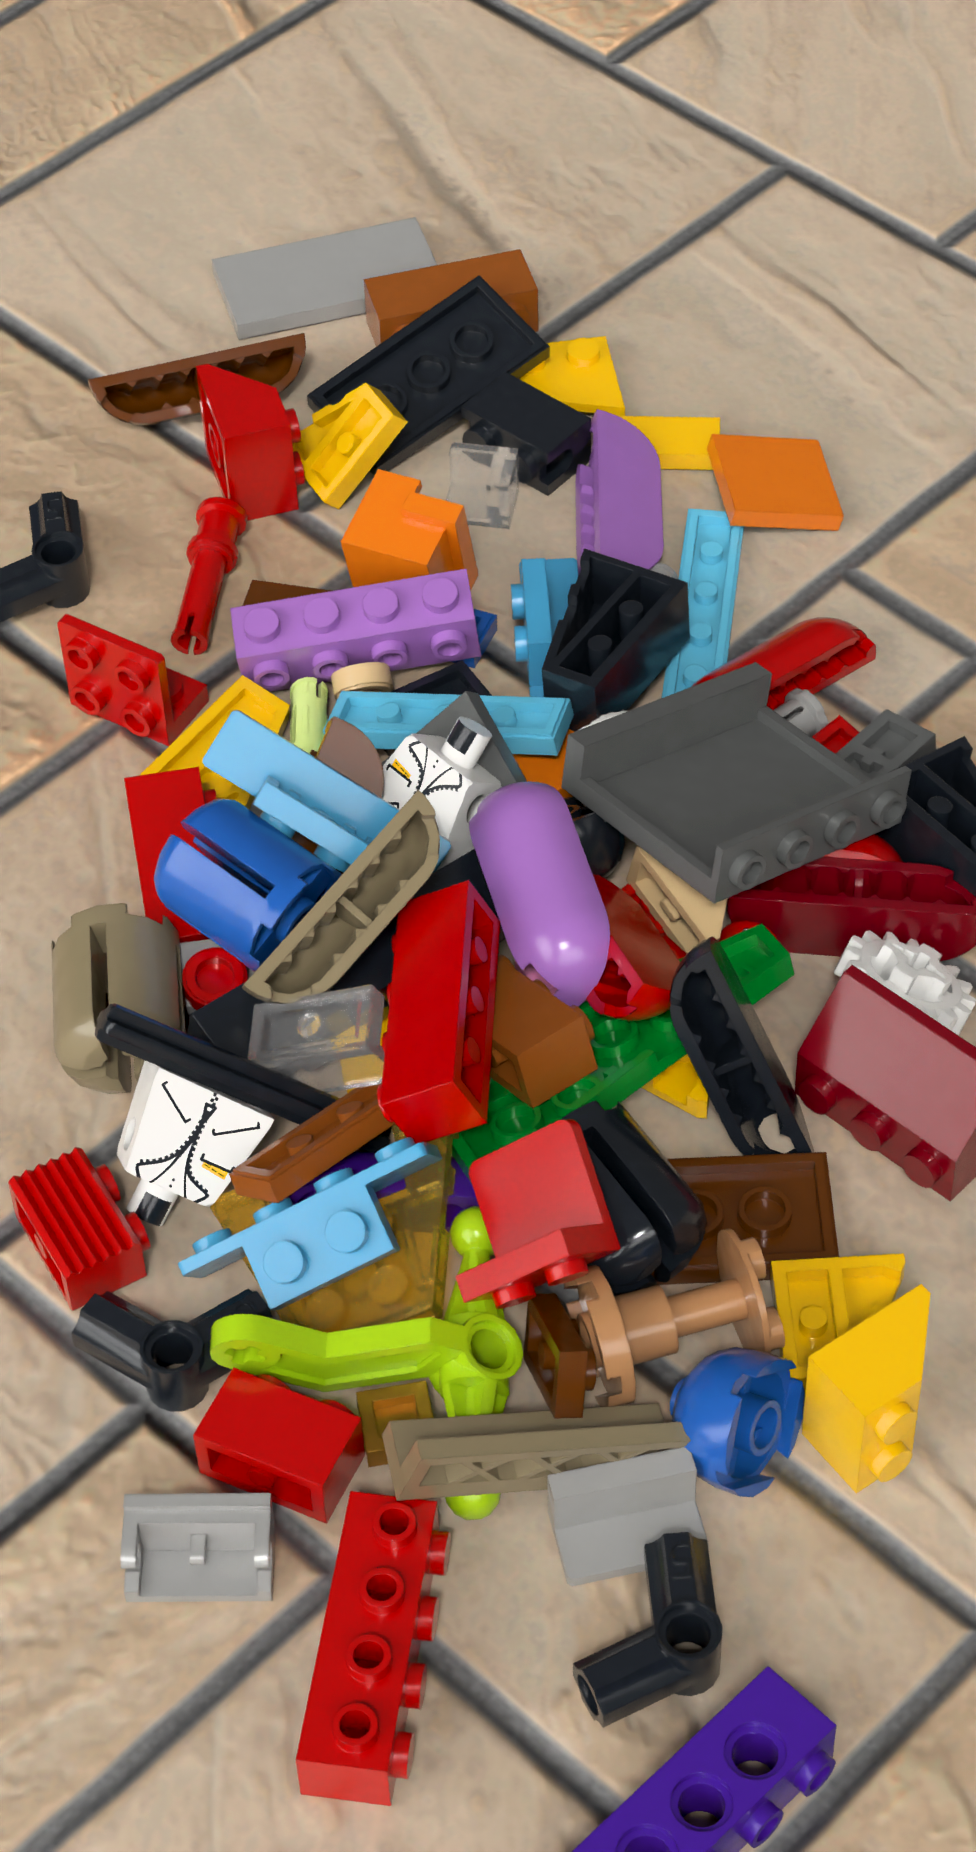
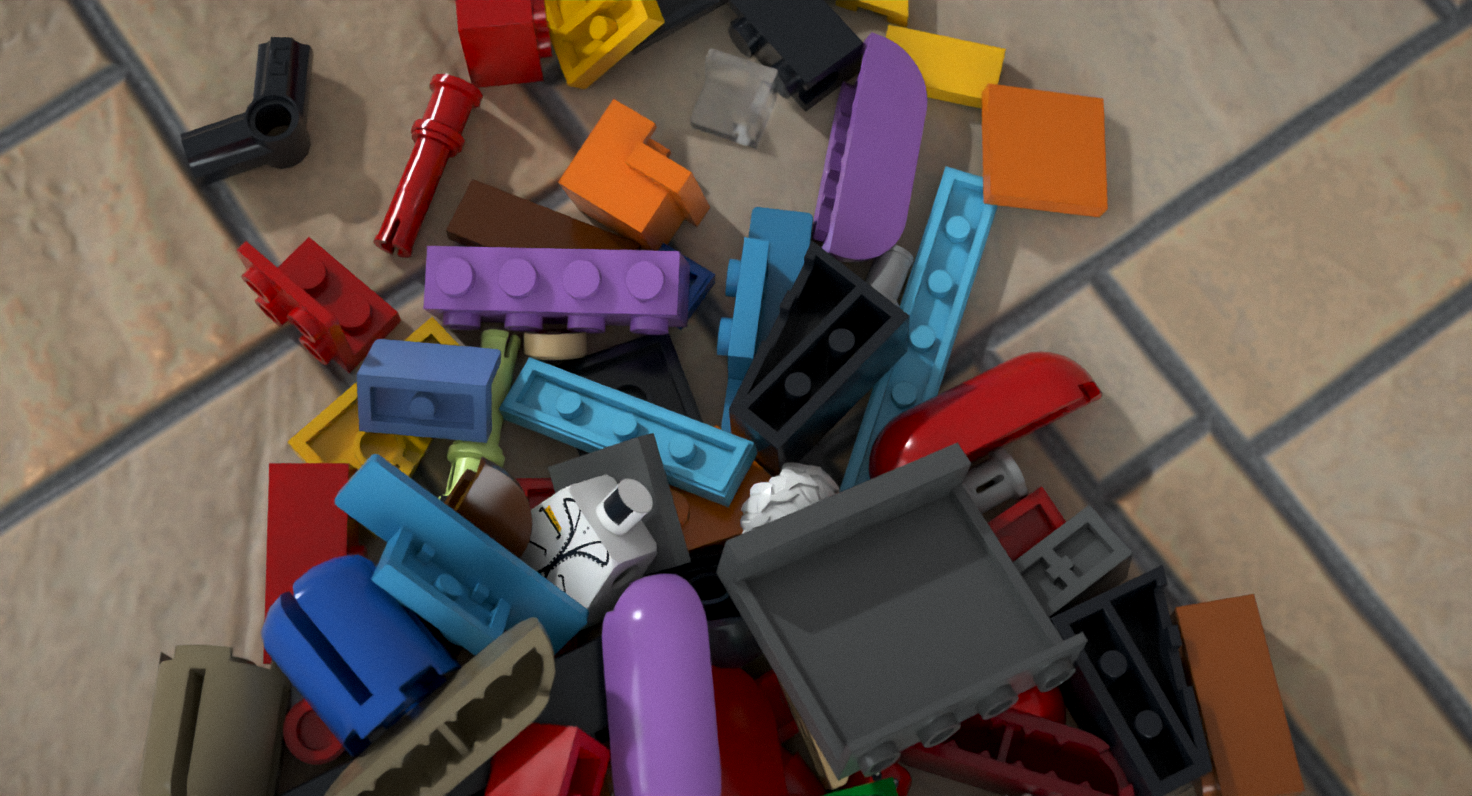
camera: 10 degrees right, 20 degrees up
(283, 709) = (427, 390): none -> medium blue panel

